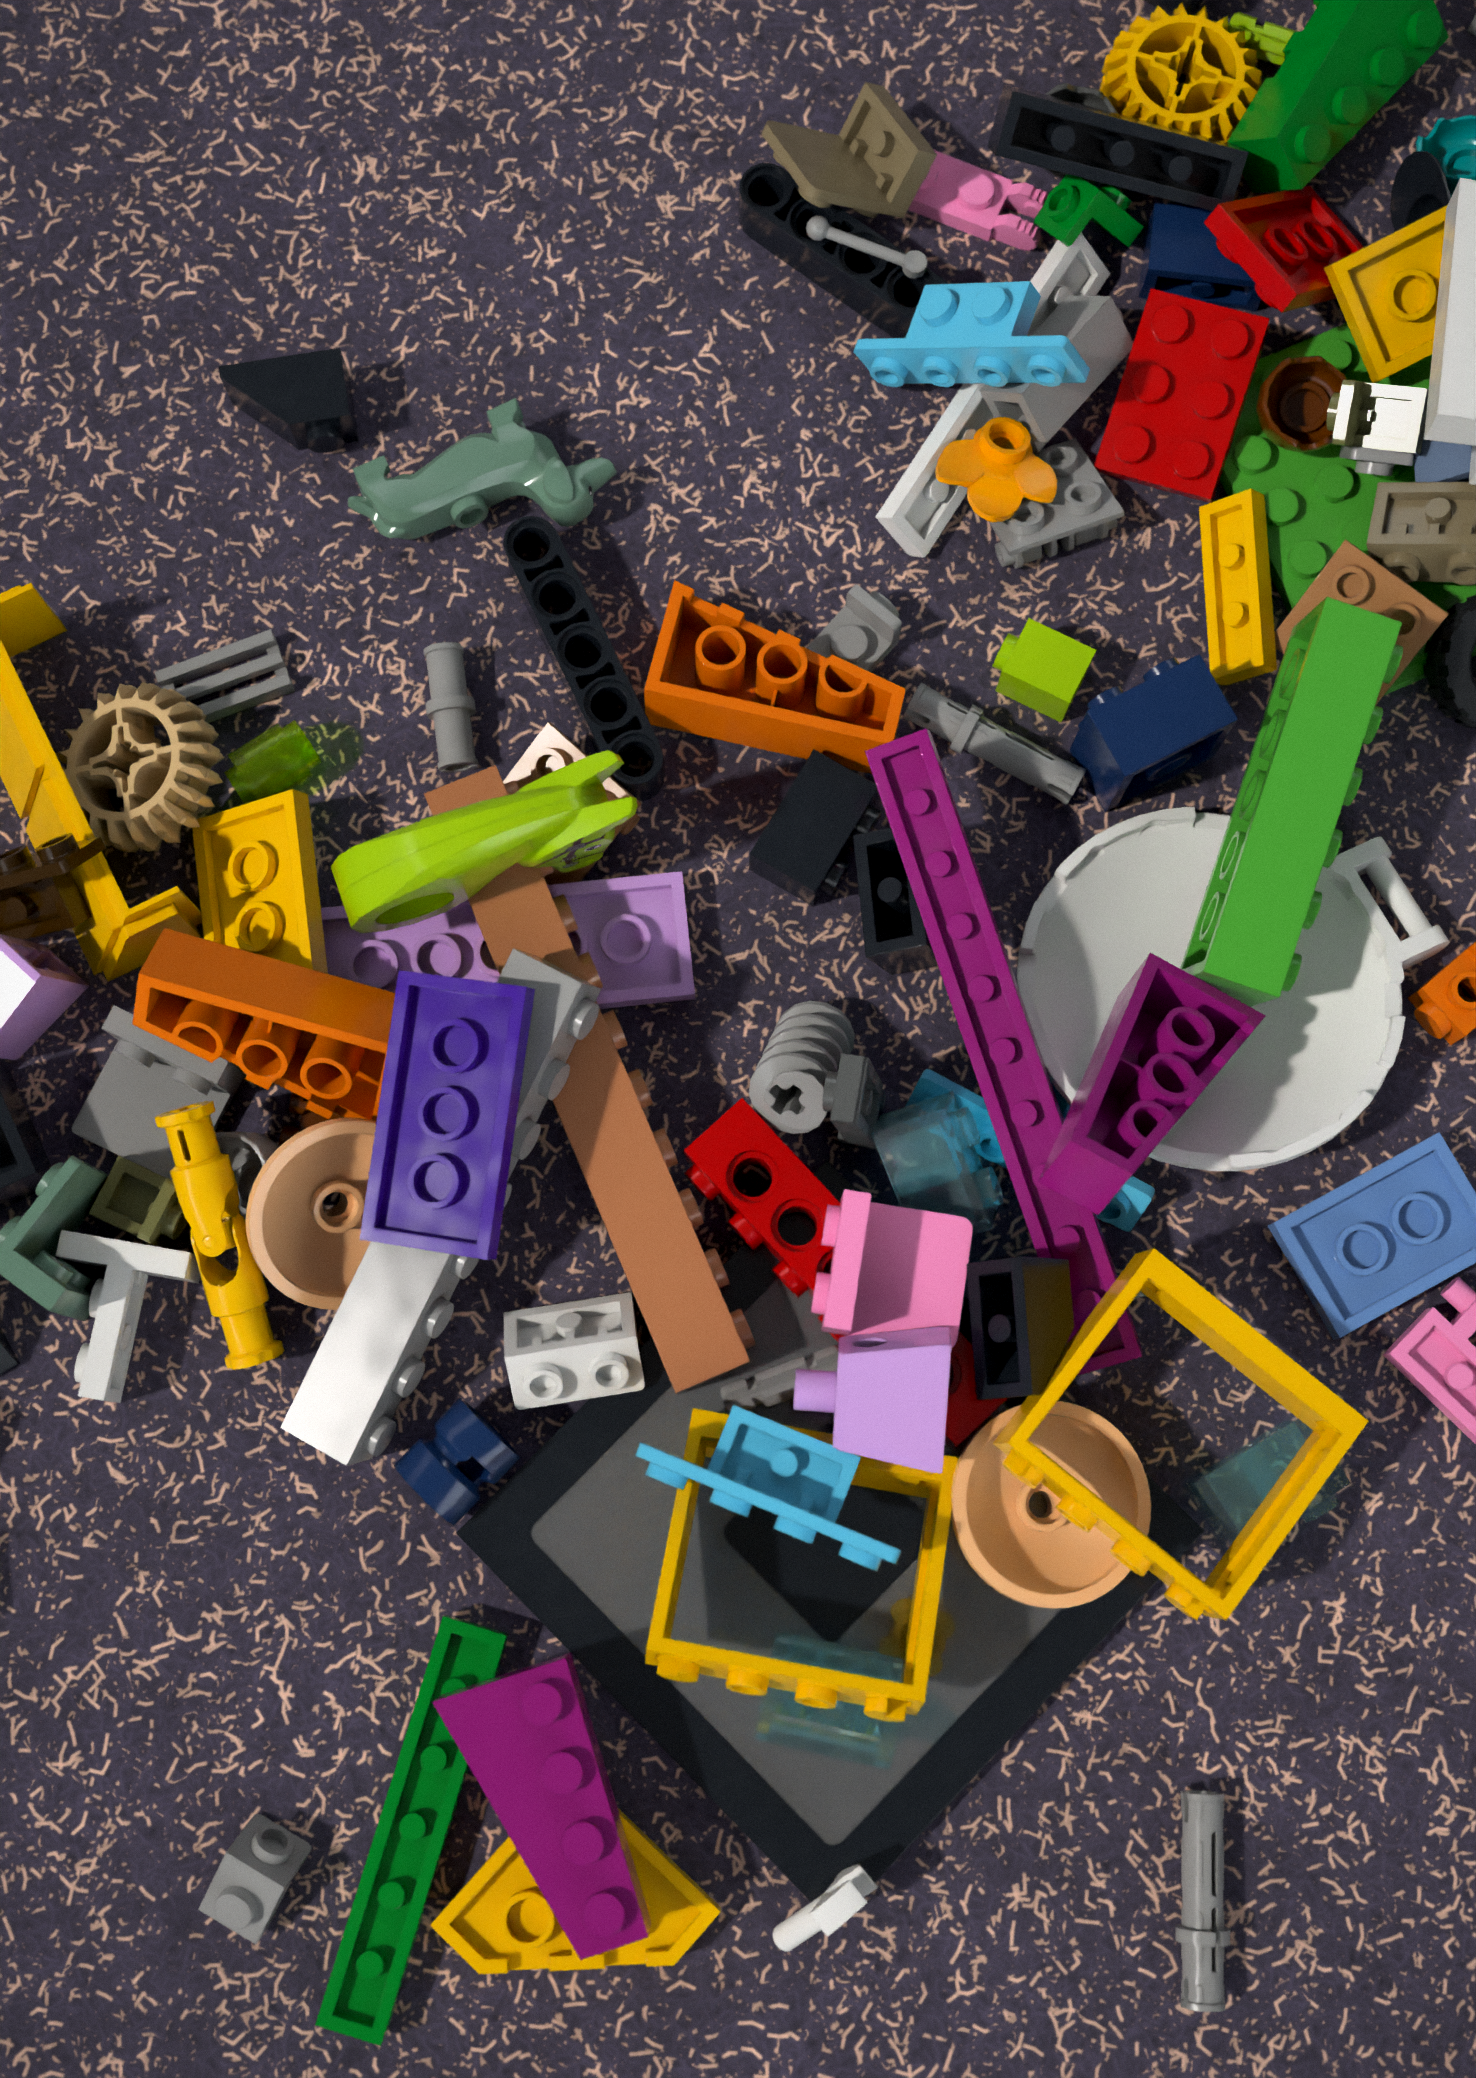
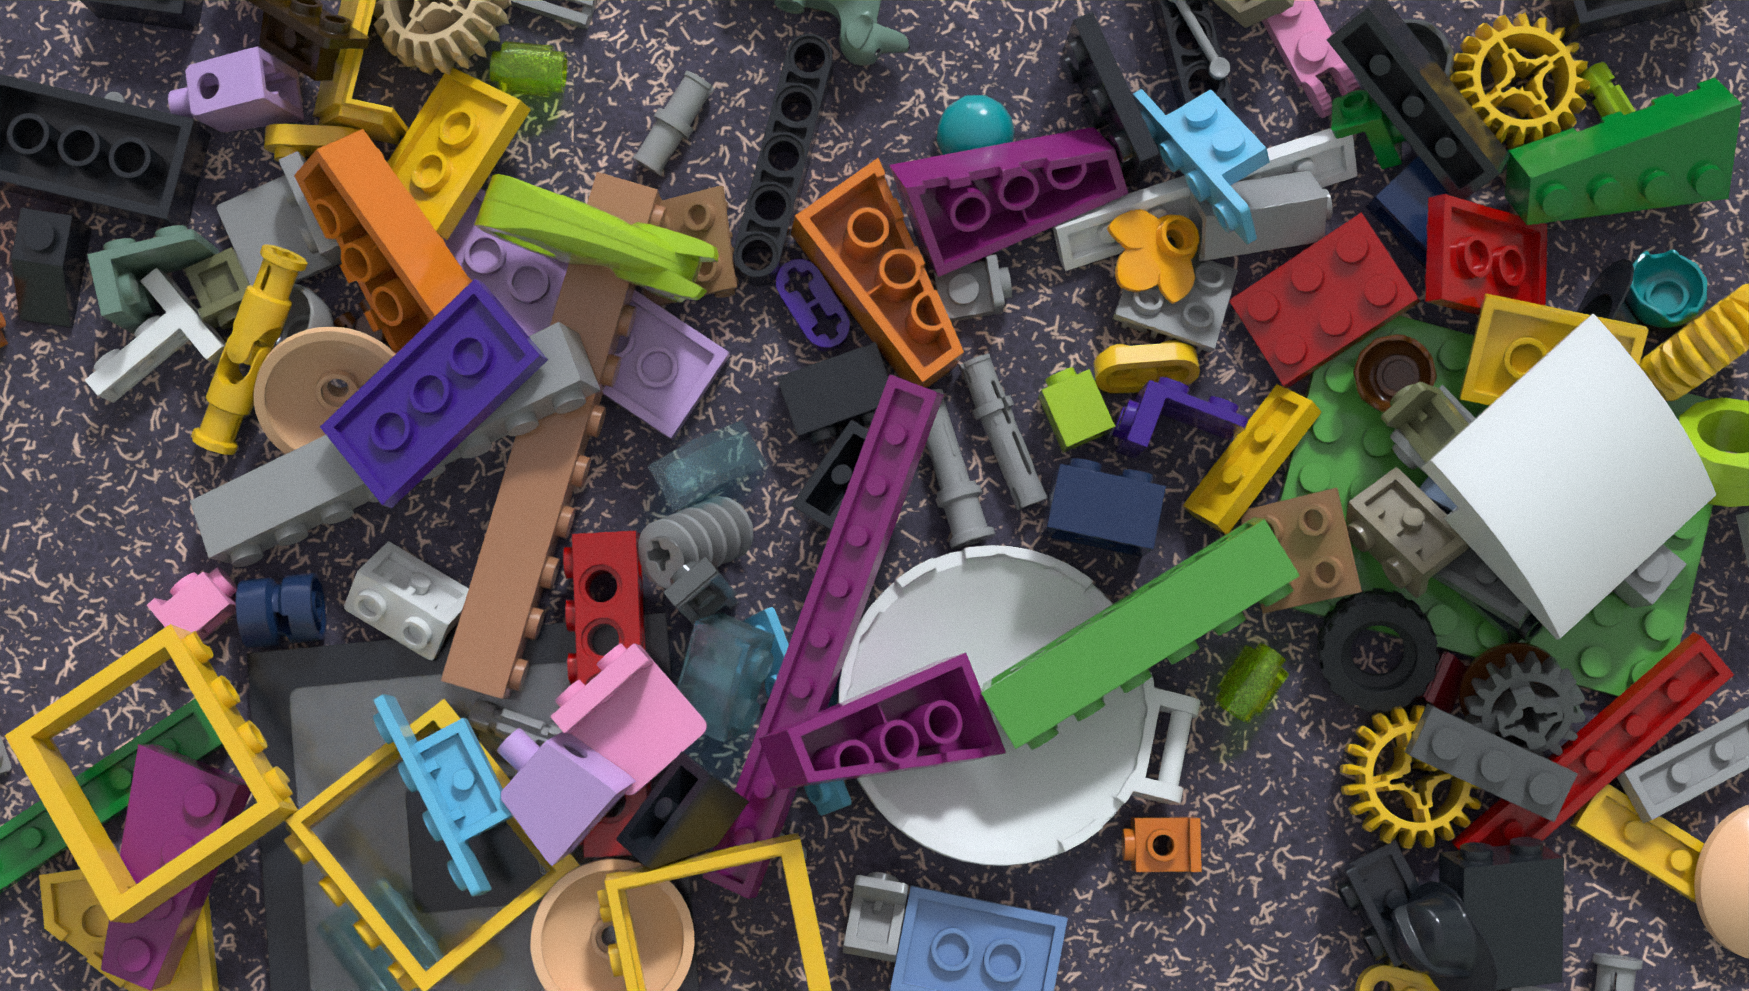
camera: 40 degrees right, 5 degrees up
(90, 1007) = (290, 138): none -> yellow plate
(369, 1526) = (198, 602): none -> bright pink brick
(437, 1827) = (76, 819): none -> yellow window
(725, 756) = (823, 298): none -> dark purple beam
(738, 500) = (974, 124): none -> teal hair
(749, 996) = (707, 466): none -> clear light blue slope
(816, 524) = (1004, 193): none -> magenta wedge
(840, 368) = (1108, 98): none -> black plate
(1008, 833) = (957, 492): none -> light grey pin
(1074, 580) = (1129, 368): none -> yellow plate
(1128, 586) = (1171, 399): none -> dark purple bracket
(1265, 1278) = (876, 916): none -> light grey bracket
(1412, 784) = (1251, 682): none -> clear neon green brick

